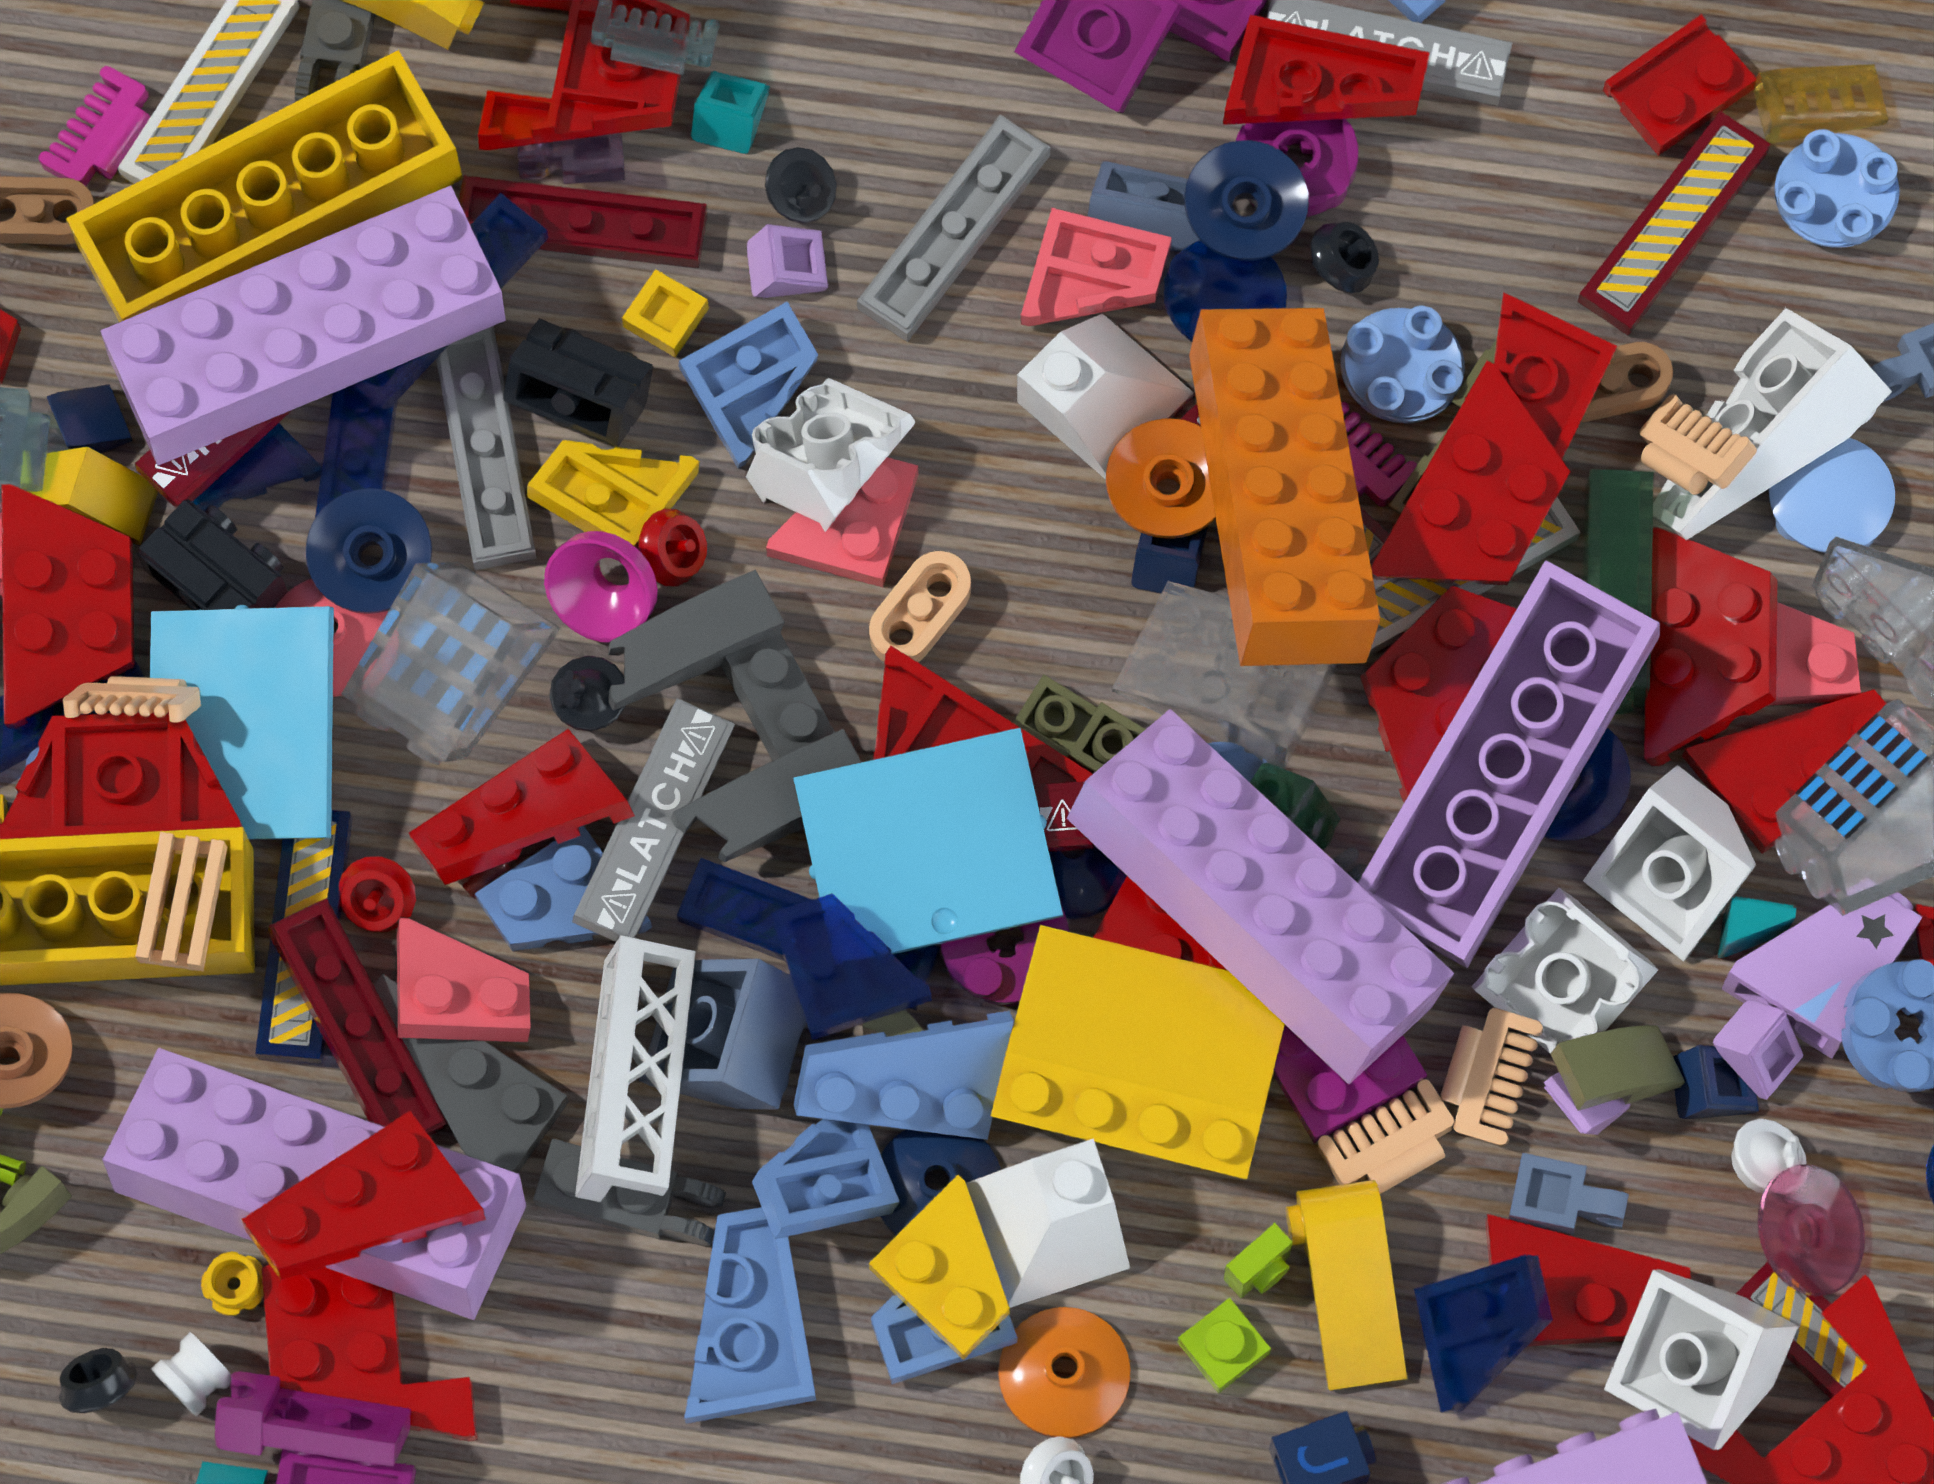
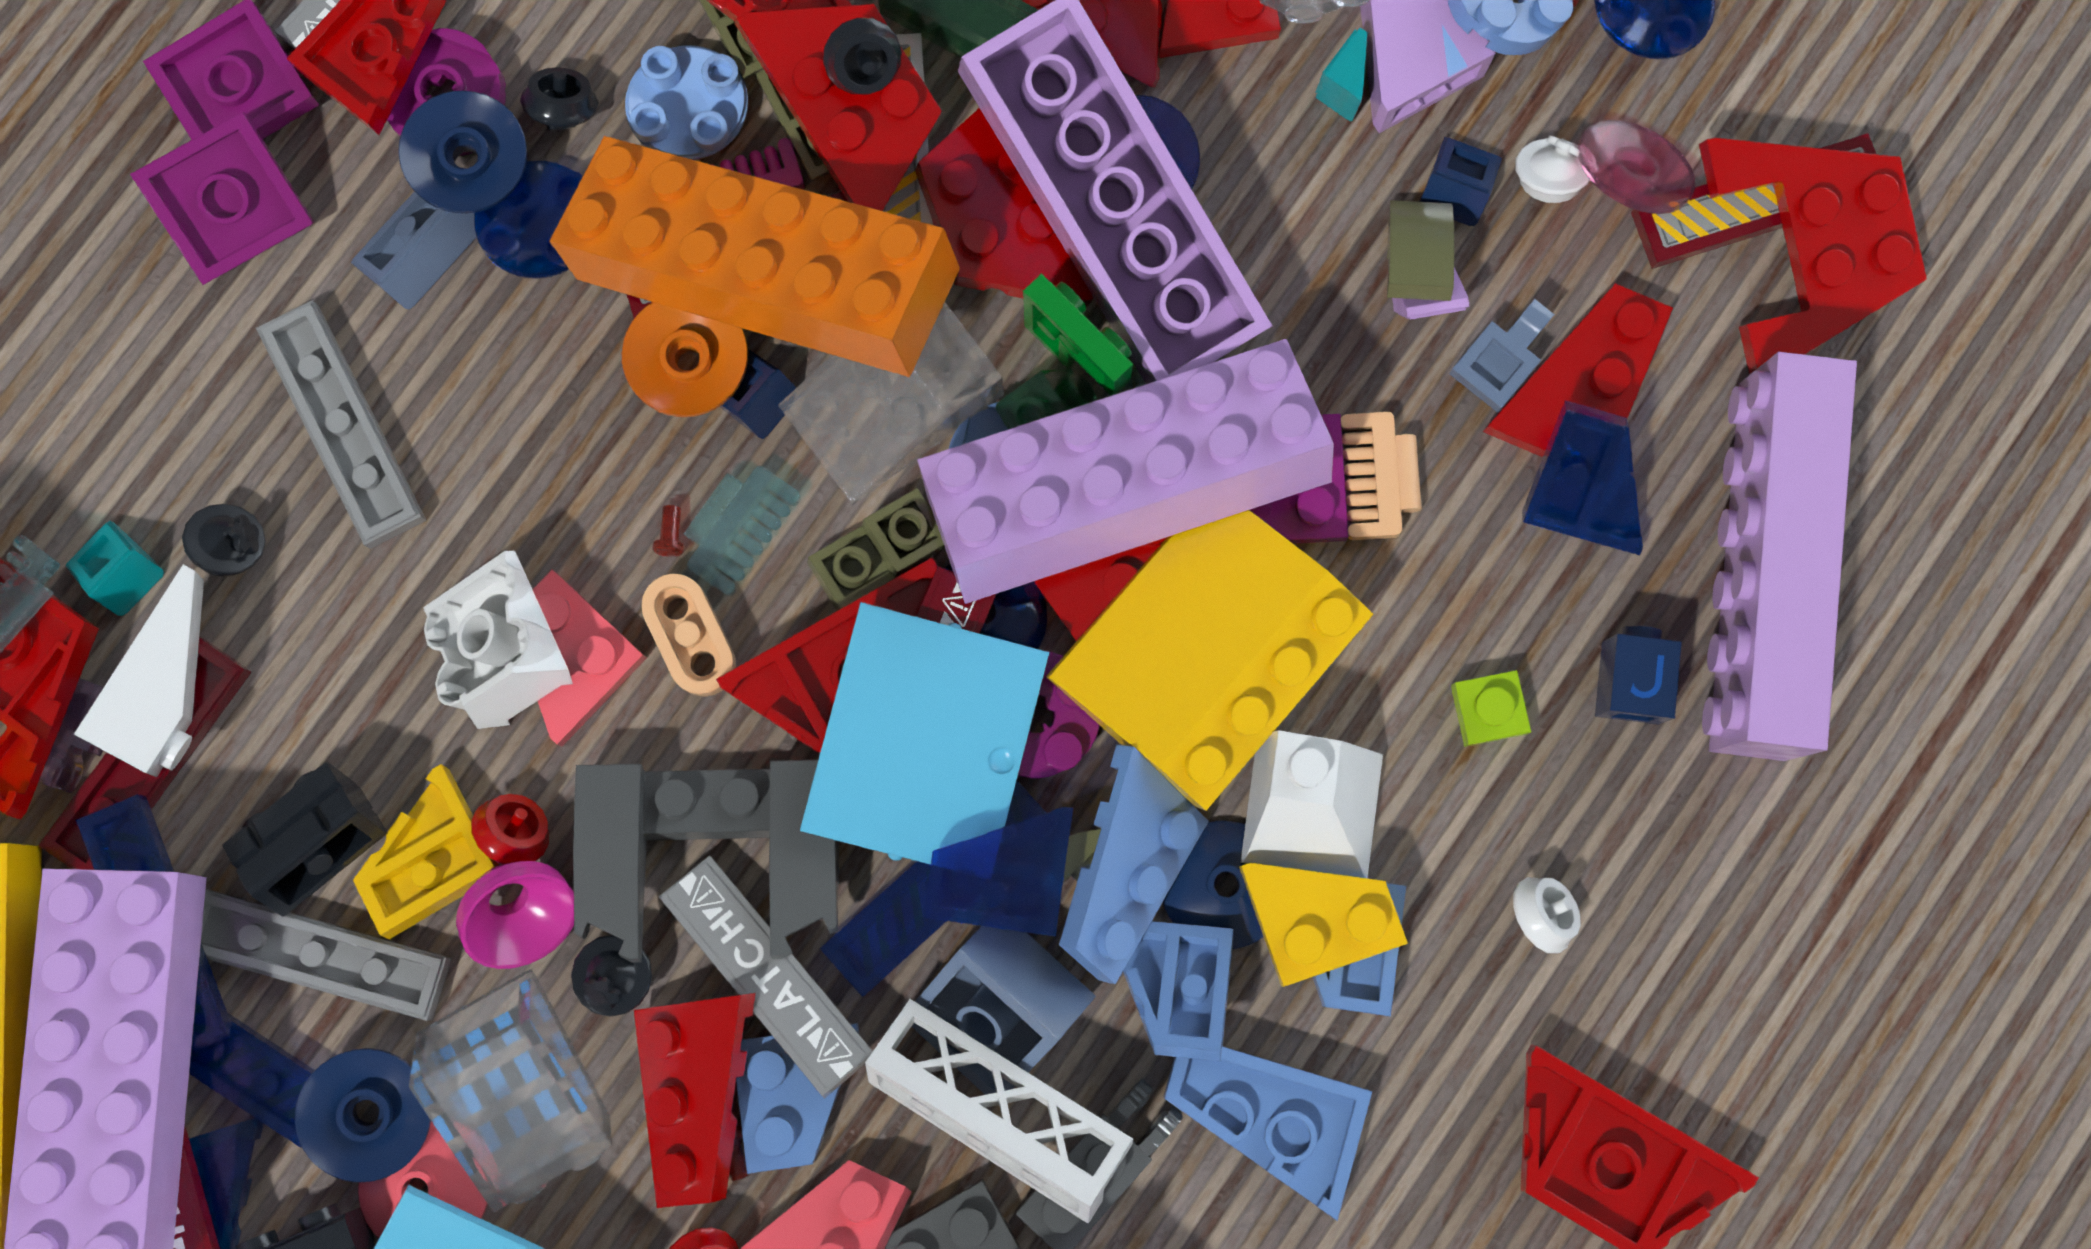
camera: 65 degrees left, 10 degrees up
(638, 194) = (151, 693): none -> white slope
(665, 313) = (279, 724): yellow plate -> none
(750, 376) = (384, 677): medium blue wing -> none
(786, 261) = (290, 590): lavender slope -> none
(1001, 549) = (669, 543): none -> clear red piece
(1041, 588) = (725, 516): none -> clear light blue piece
(1056, 1404) = (1412, 859): orange dish -> none
(1093, 269) = (449, 320): coral wing -> none
(1096, 388) = (567, 374): white slope -> none
(1260, 1263) = (1439, 640): lime plate -> none
(1351, 1282) = (1468, 559): yellow door -> none
(1367, 787) = (1058, 322): none -> green plate
(1474, 1071) = (1354, 371): light nougat piece -> none
(1508, 482) = (862, 56): none -> black hat
(1565, 972) = (1311, 253): white slope -> none
(1674, 862) = (1260, 107): white slope -> none
(1699, 1356) = (1706, 315): white slope -> none
(1759, 1046) = (1452, 125): lavender slope -> none

